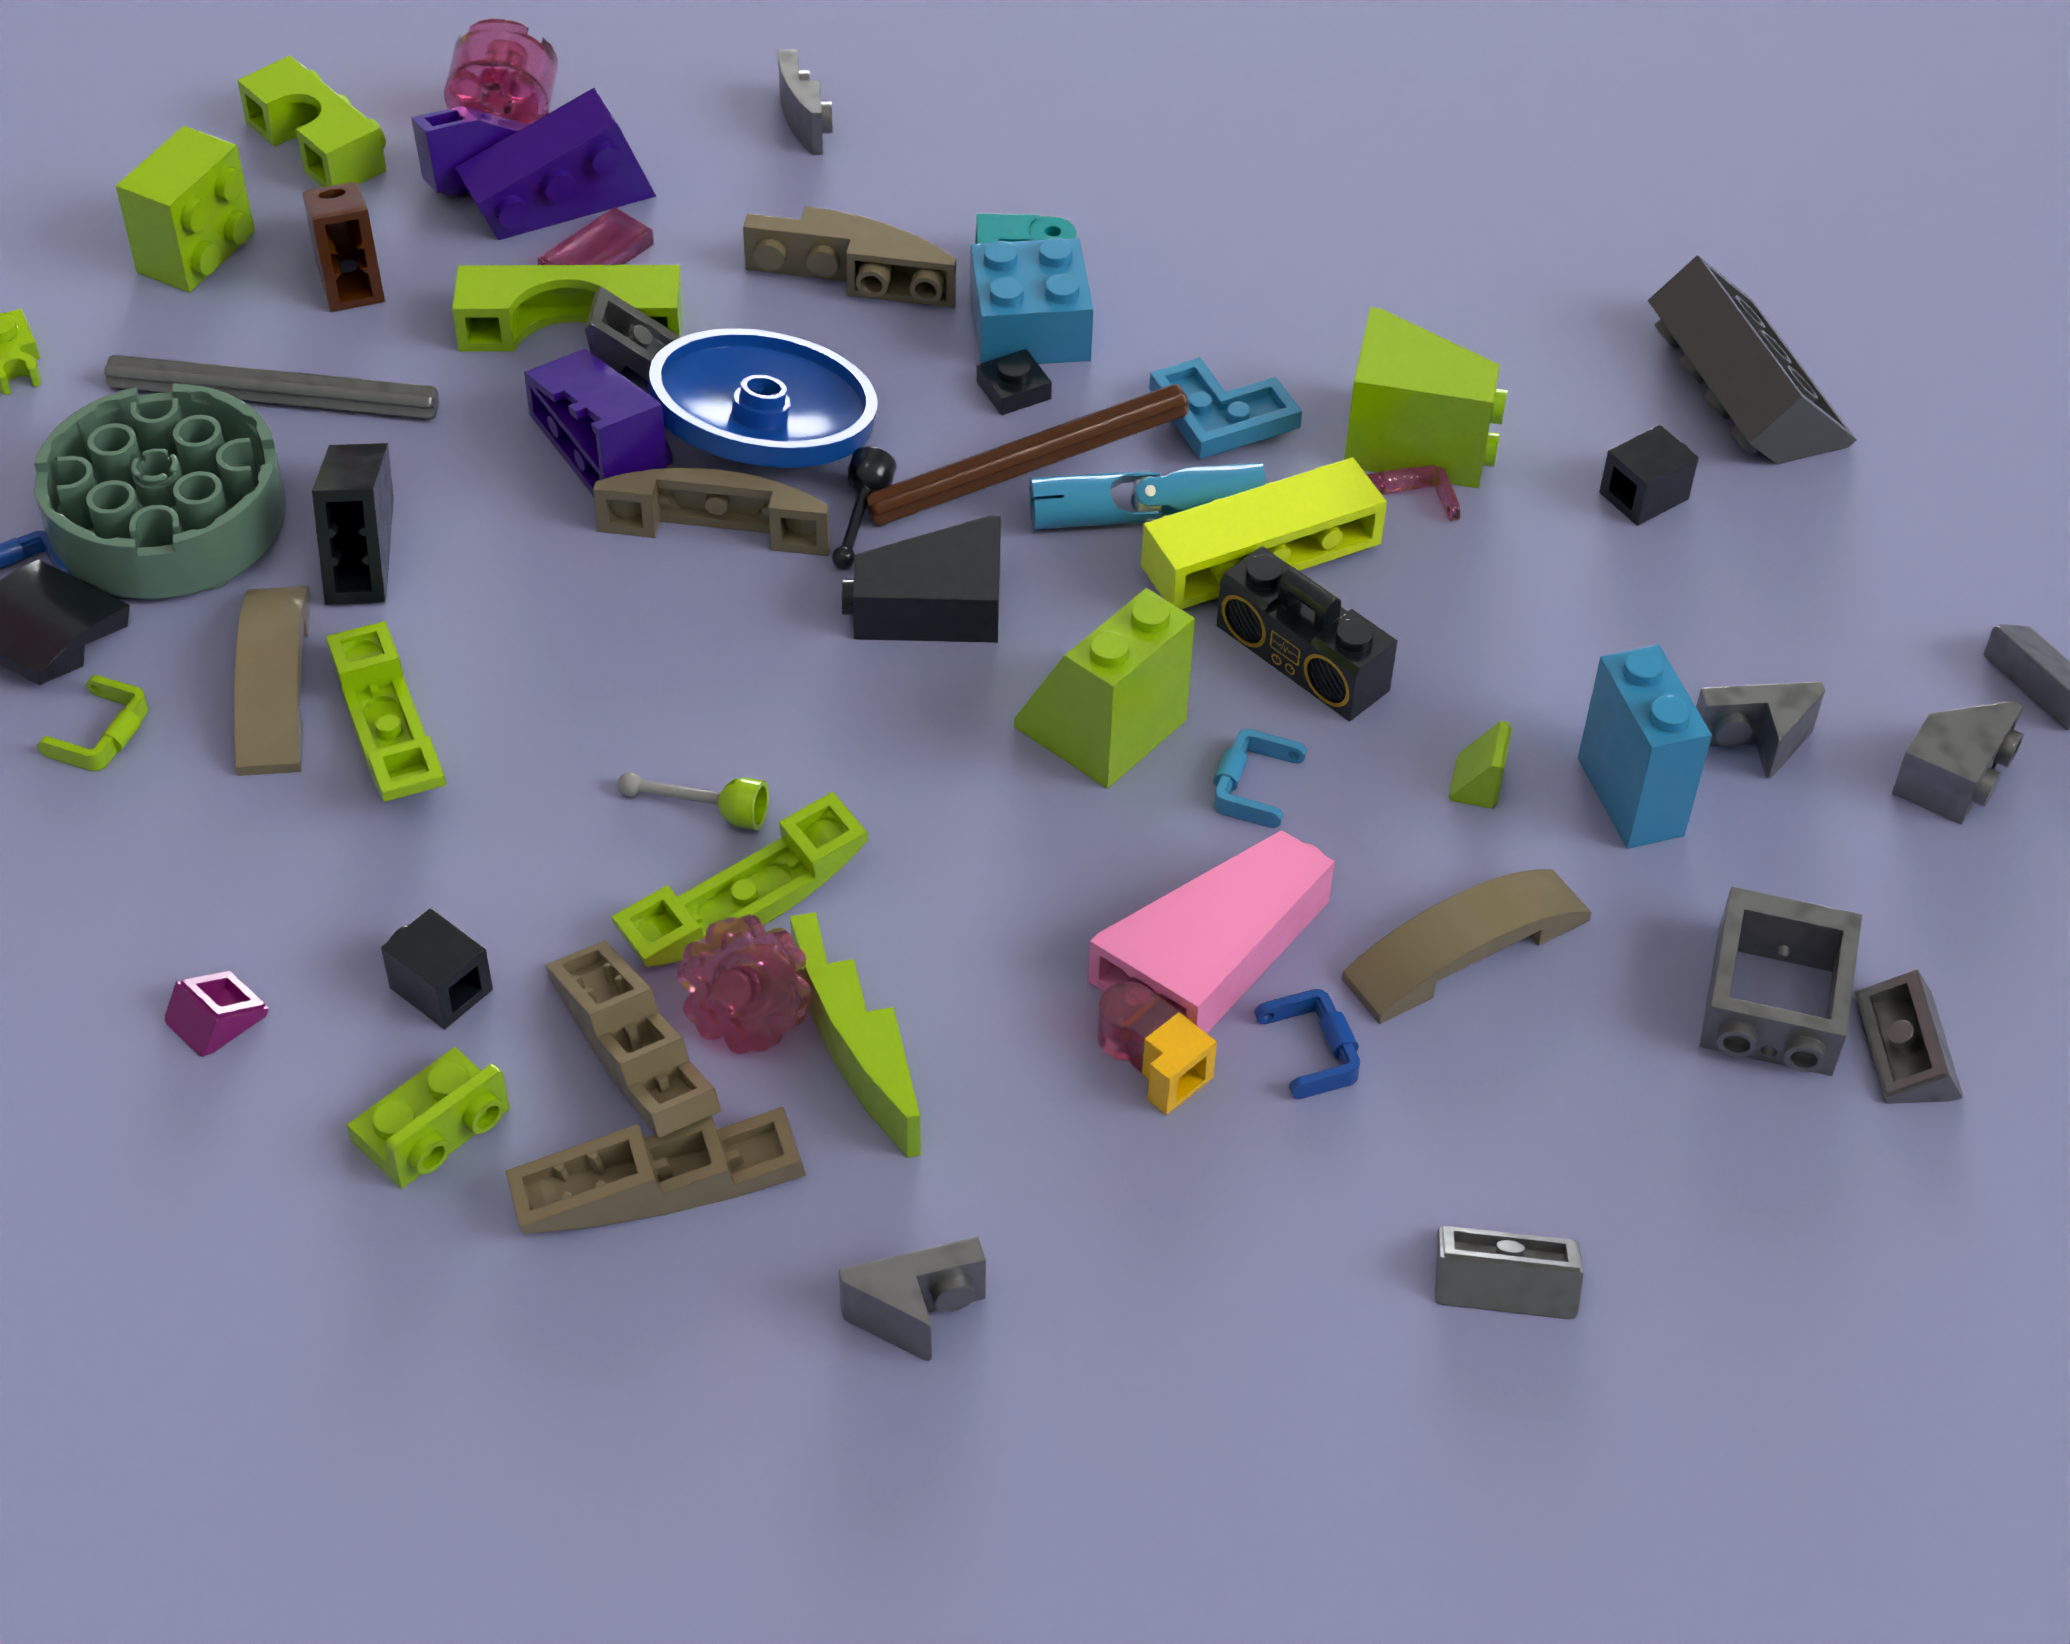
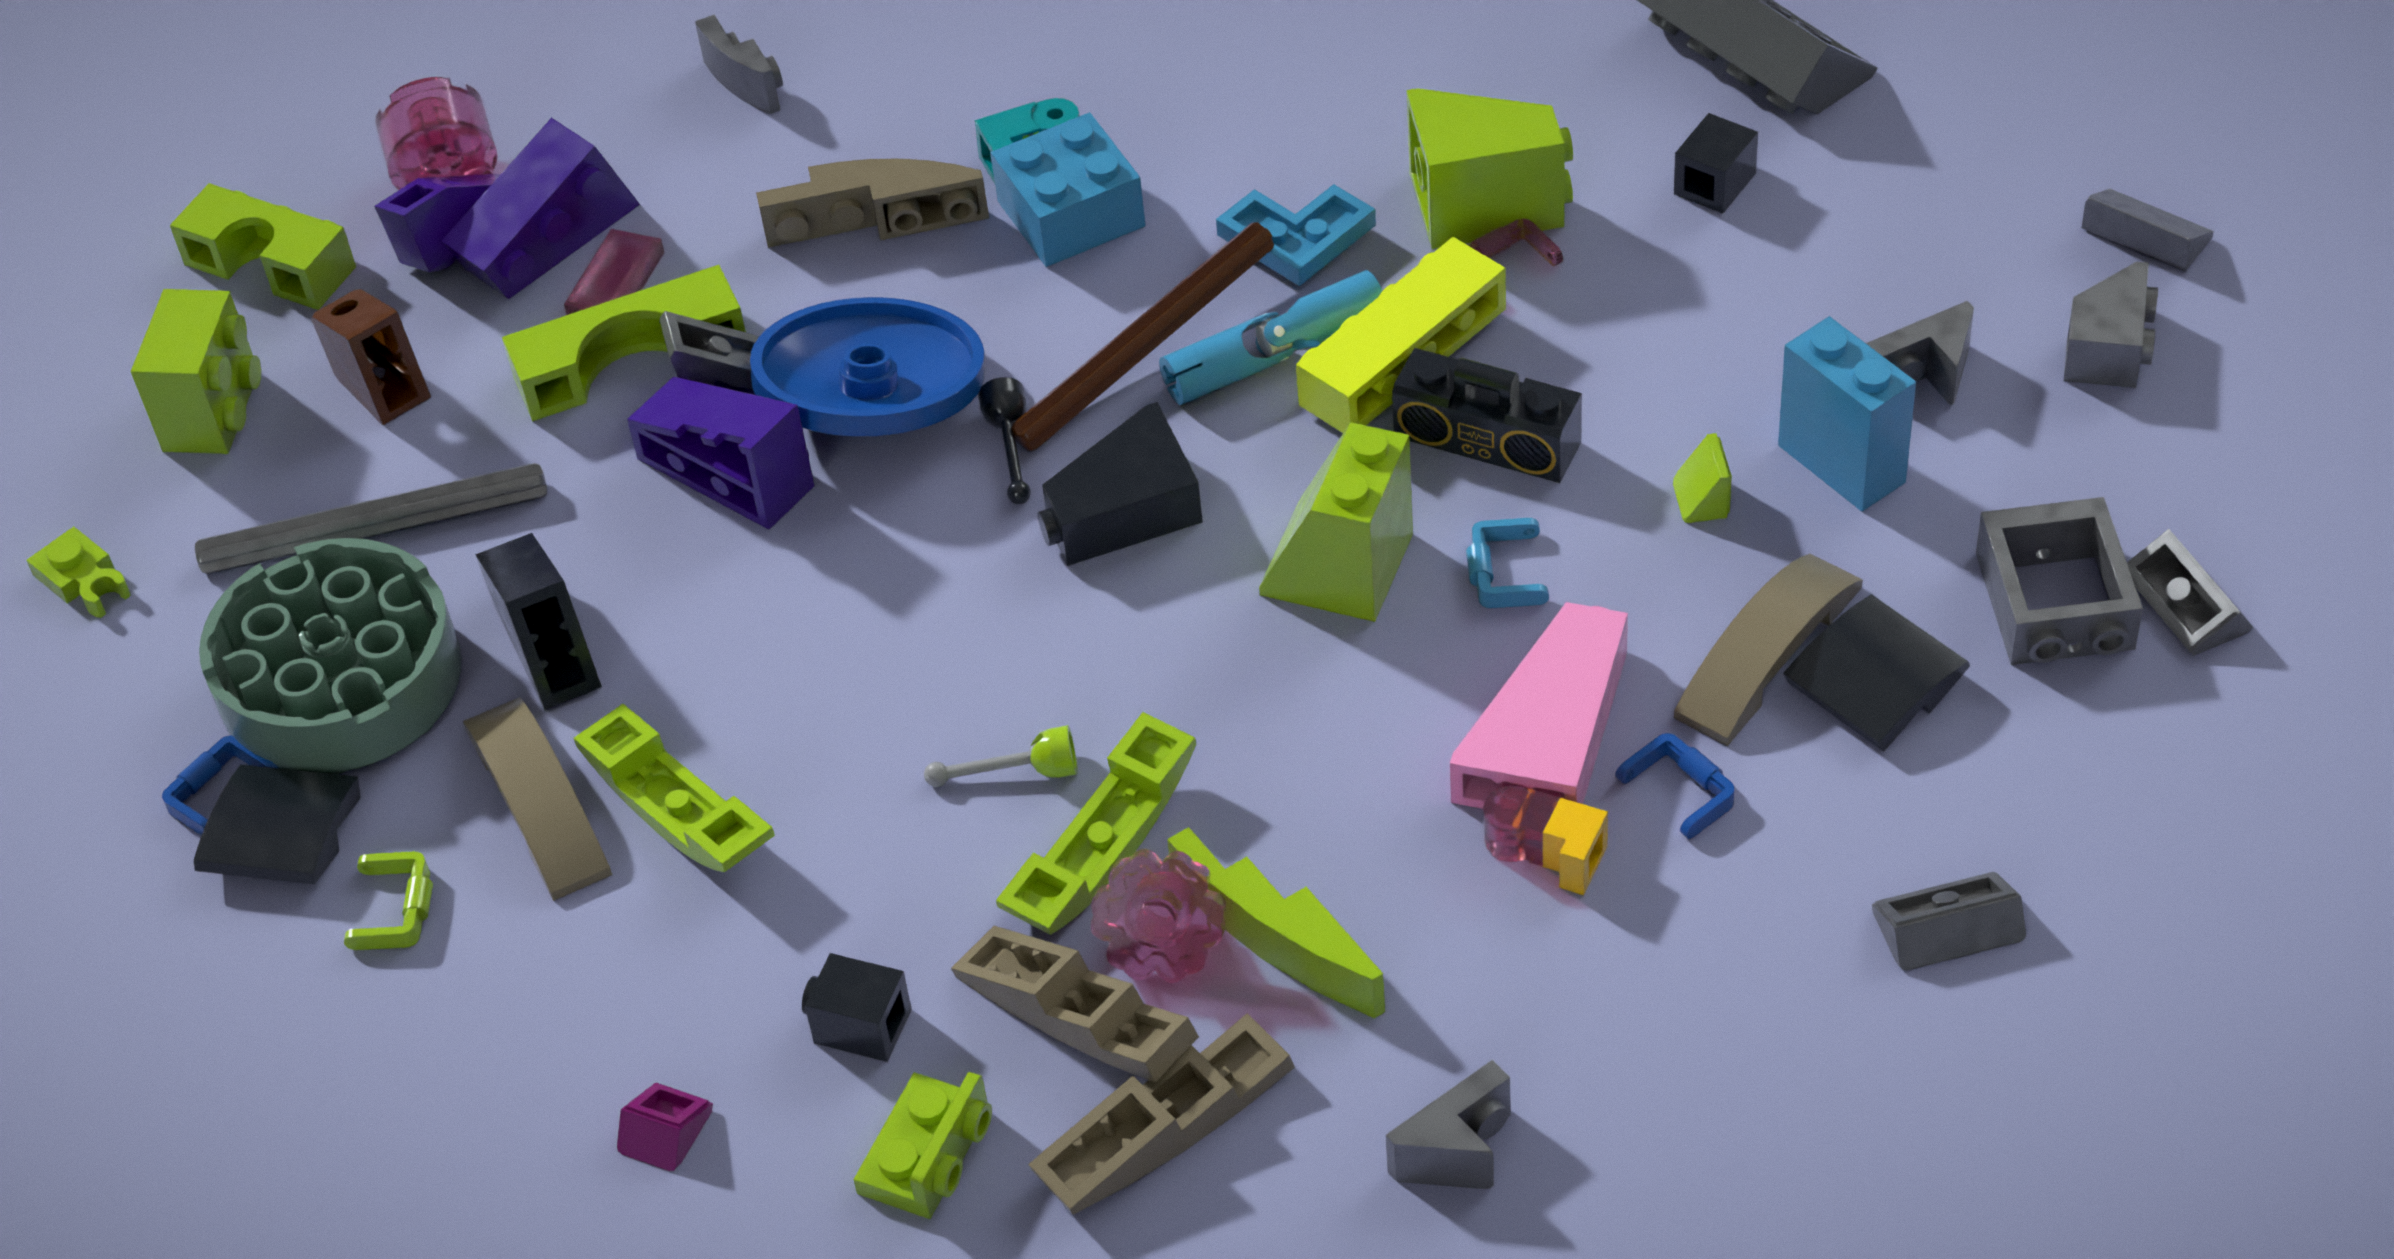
camera: 15 degrees left, 0 degrees up
(715, 499) = (876, 478): dark tan slope -> none
(1013, 382) = (1087, 271): black plate -> none
(1557, 1003) = (1875, 671): none -> black slope

